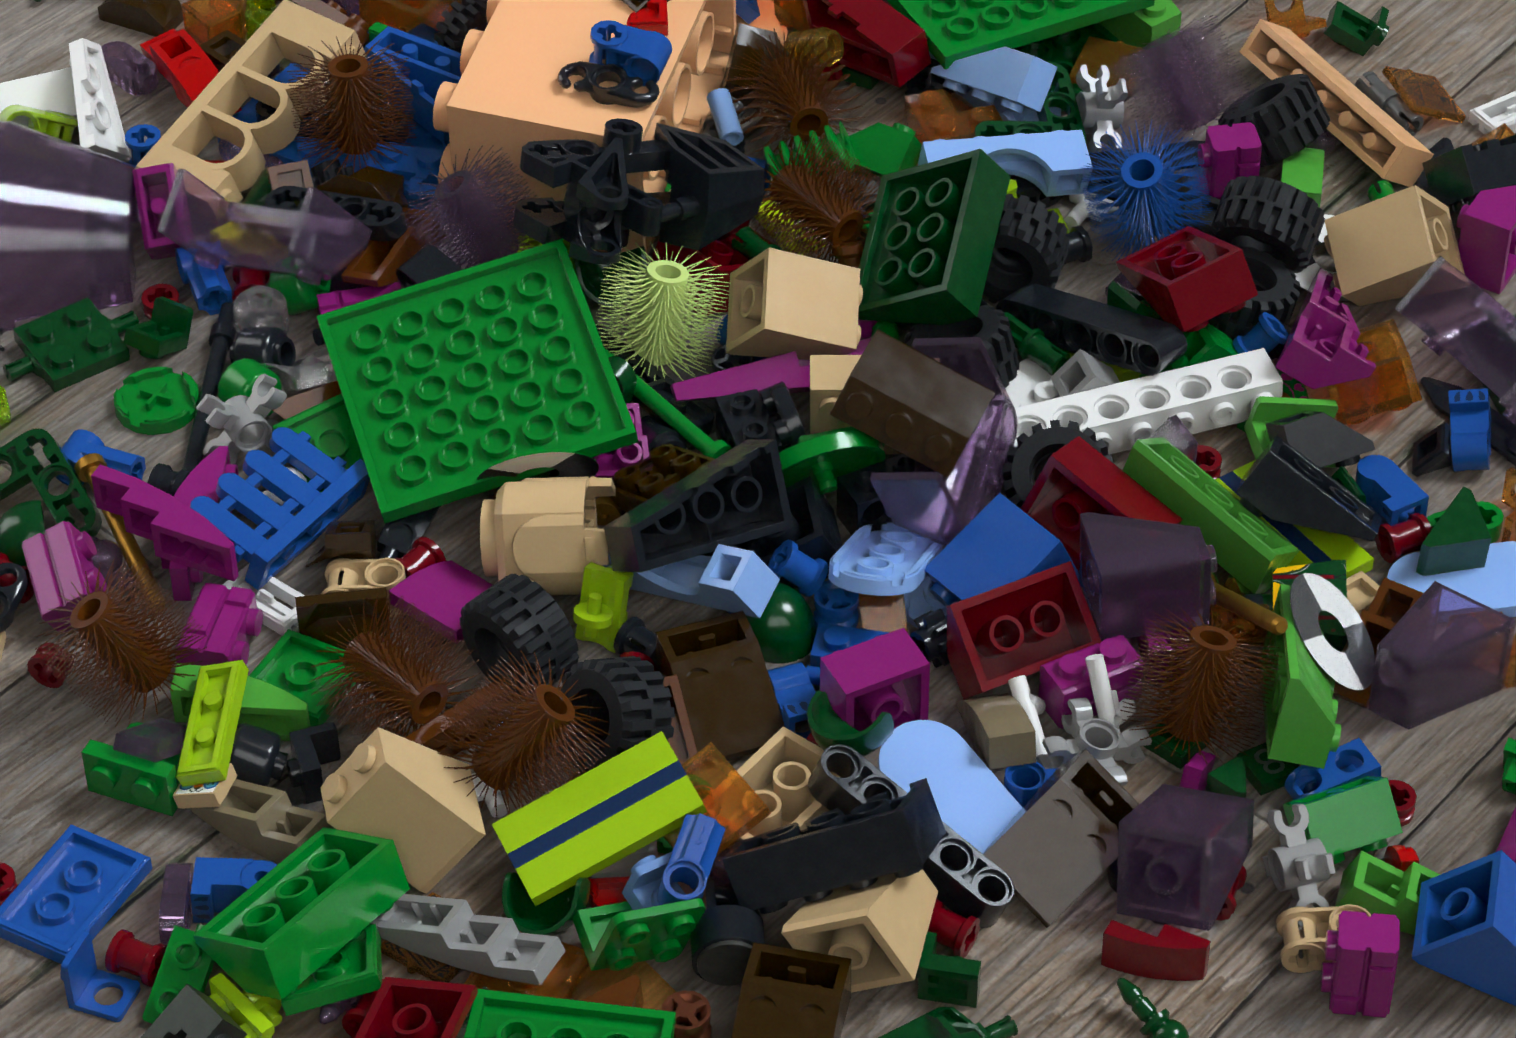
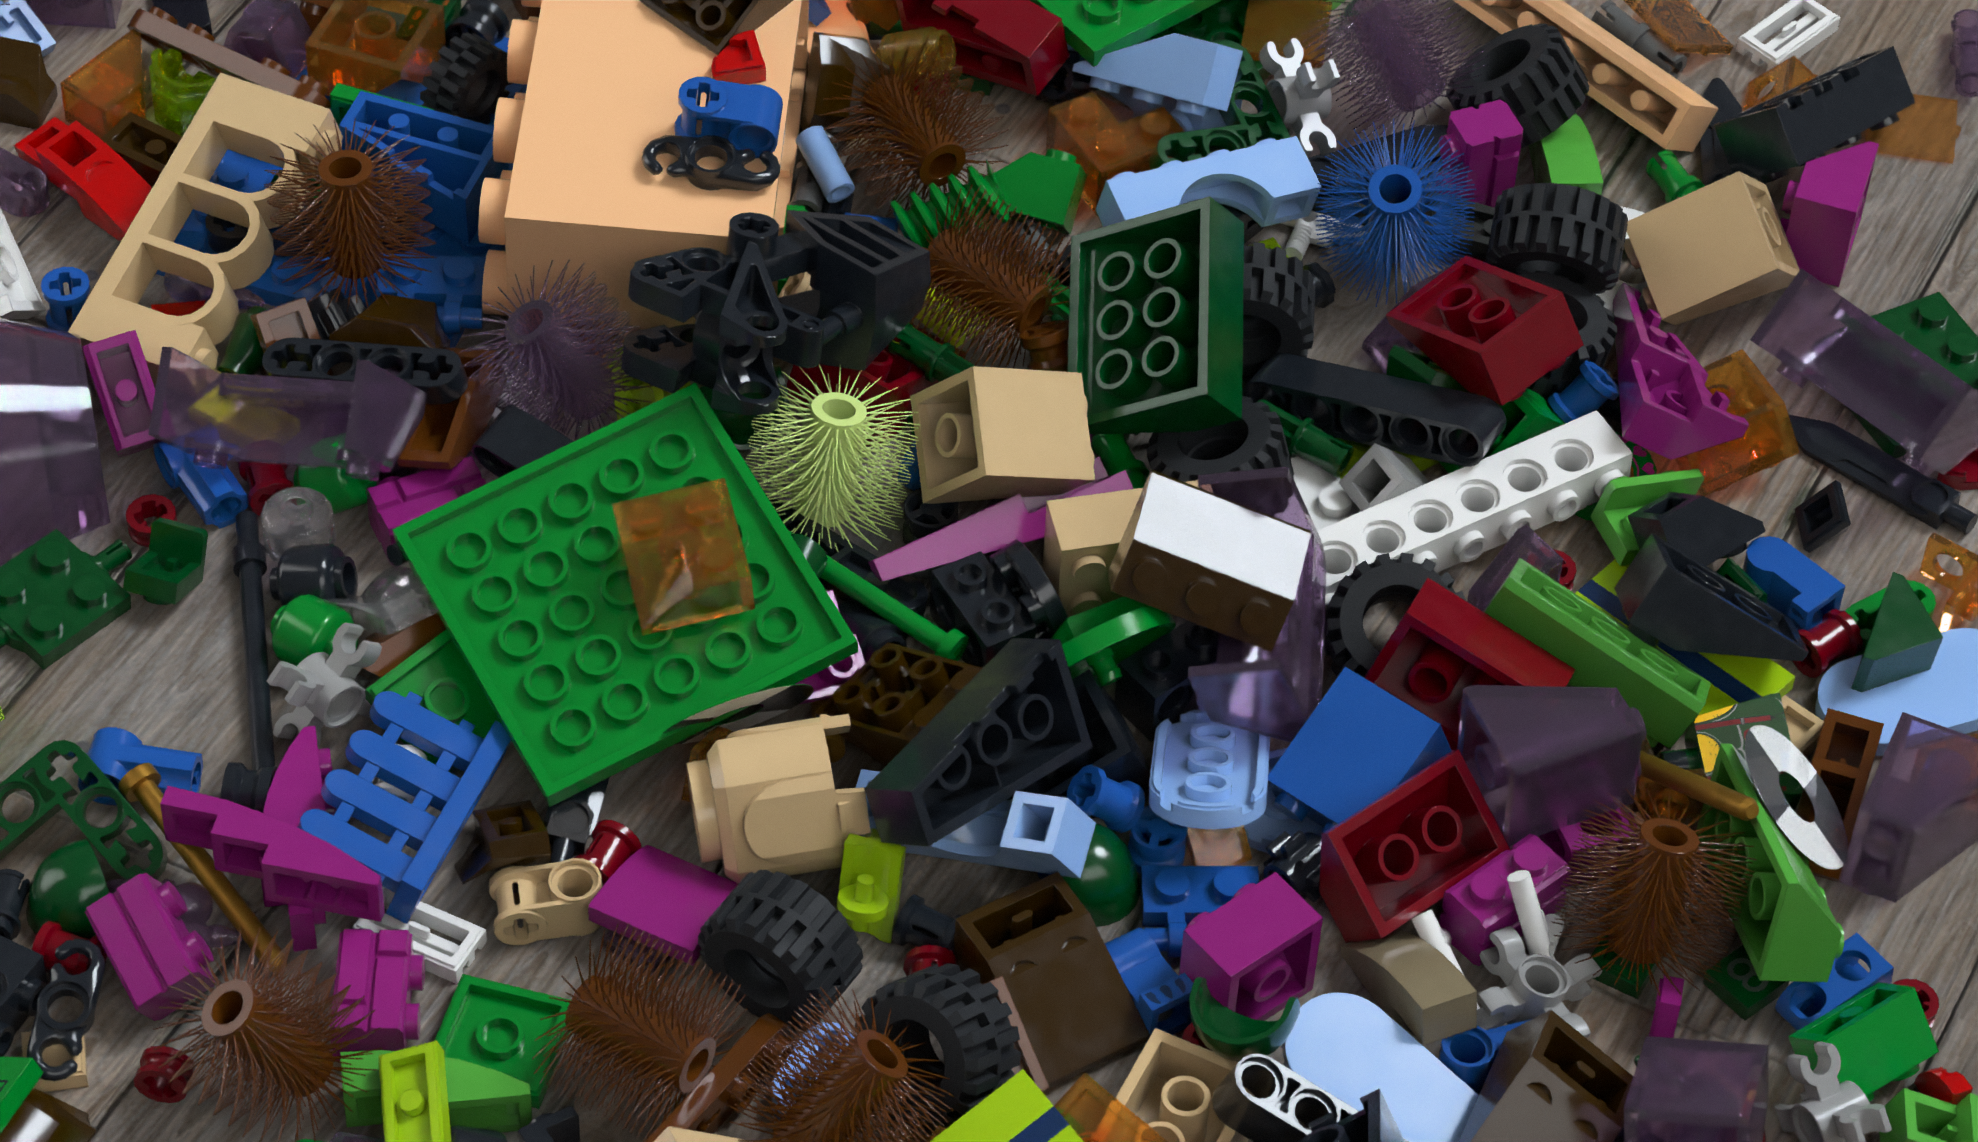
camera: 15 degrees left, 5 degrees up
(156, 401) = (187, 665): green tile -> none
(319, 614) = (533, 949): dark brown slope -> none
(518, 354) = (683, 556): none -> clear orange slope
(1228, 778) = (1713, 1016): dark green slope -> none
(1470, 429) = (1866, 484): blue leg -> none

